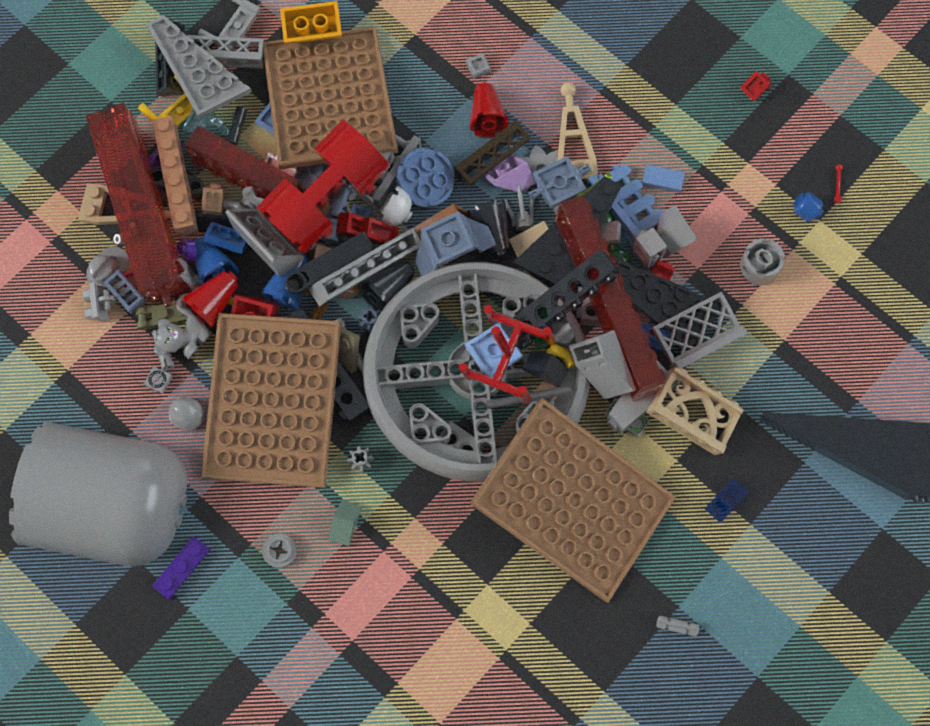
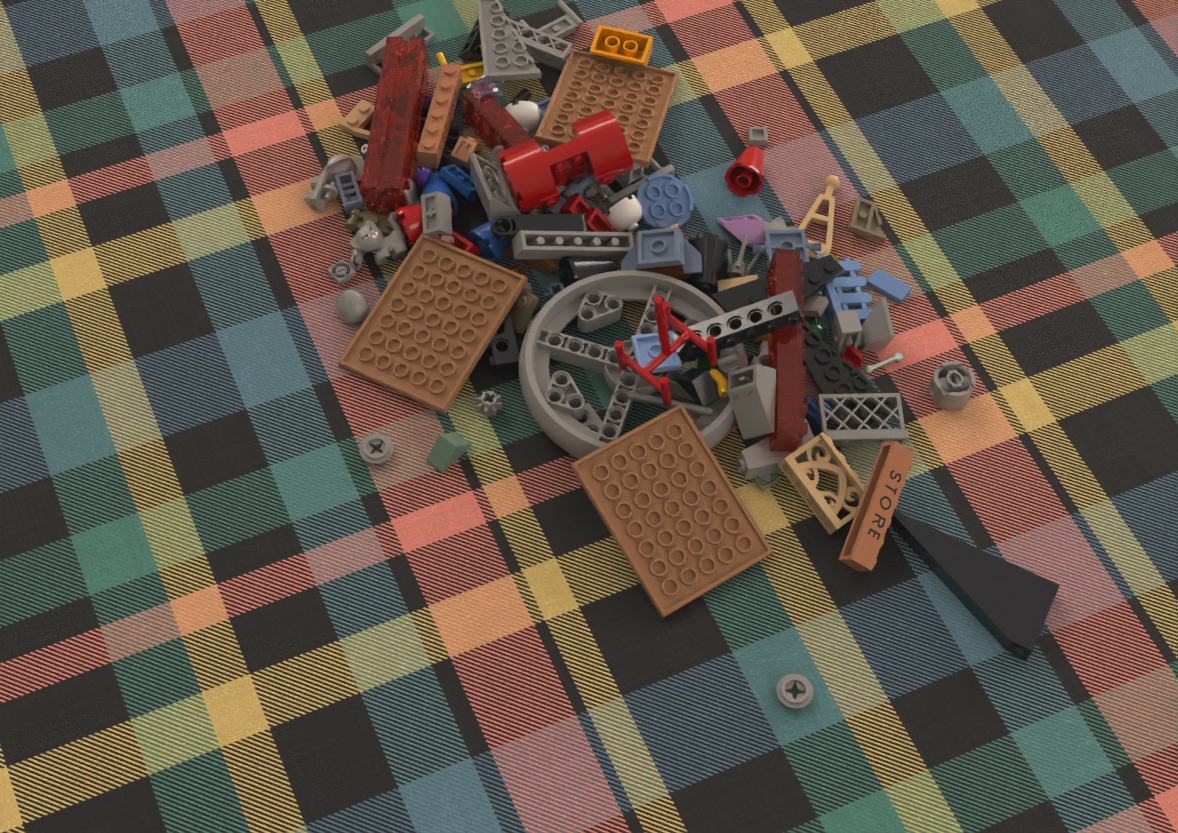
camera: 20 degrees right, 15 degrees down
(89, 102) = (409, 29): none -> light grey fence
(97, 495) = (236, 338): light grey cylinder -> none
(181, 567) = (280, 428): dark purple plate -> none
(204, 130) = (484, 87): none -> tile
(225, 291) = (436, 214): none -> light grey hinge
(256, 141) = (526, 114): none -> white cylinder
(490, 150) = (735, 204): dark brown fence -> none
(615, 118) = (866, 220): none -> dark tan wing
(677, 626) = (721, 666): light grey axle -> none
(700, 249) = (897, 357): none -> light aqua hinge
(726, 500) = (822, 577): clear blue slope -> none
(749, 416) = (877, 506): none -> nougat brick
(751, 612) = (801, 684): none -> light grey gear
(756, 85) = (1014, 242): red bracket -> none
(808, 206) = (1019, 358): blue head -> none
(837, 199) = (1053, 365): red hinge -> none

